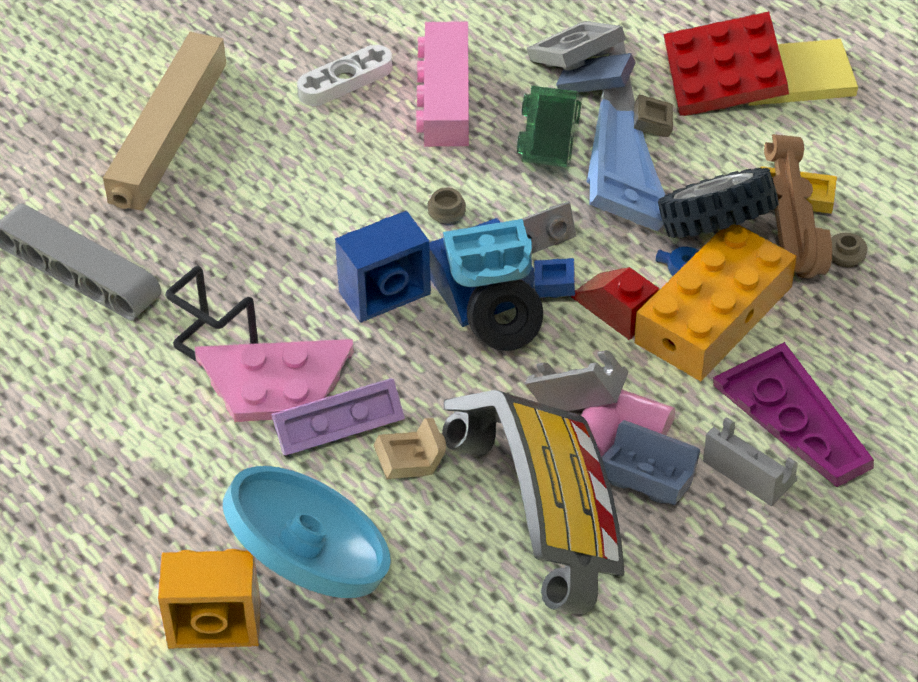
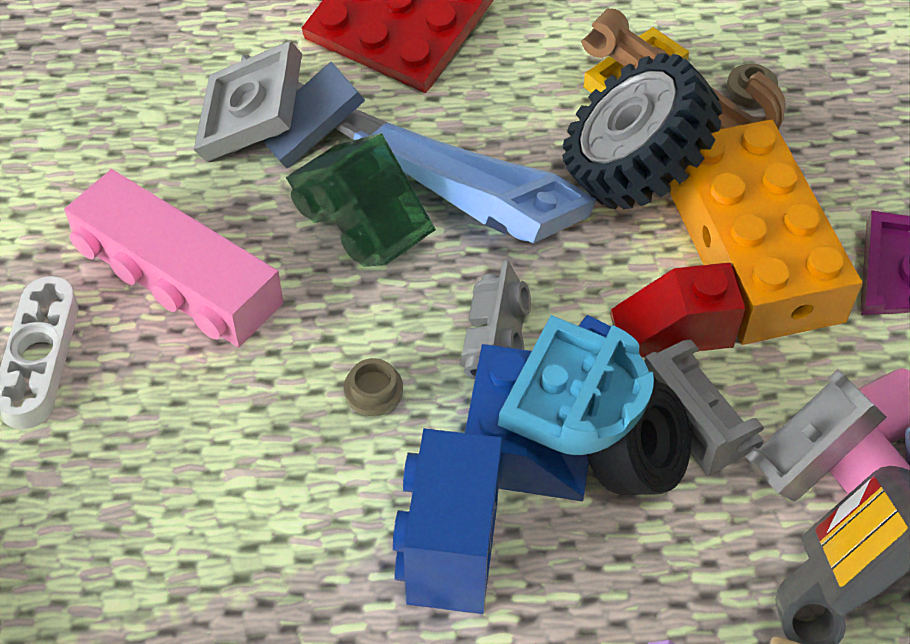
camera: 55 degrees left, 5 degrees up
(563, 334) = (715, 427): none -> light grey hinge
(653, 116) = (414, 111): dark tan tile -> none
(676, 258) = (658, 224): blue piece -> none

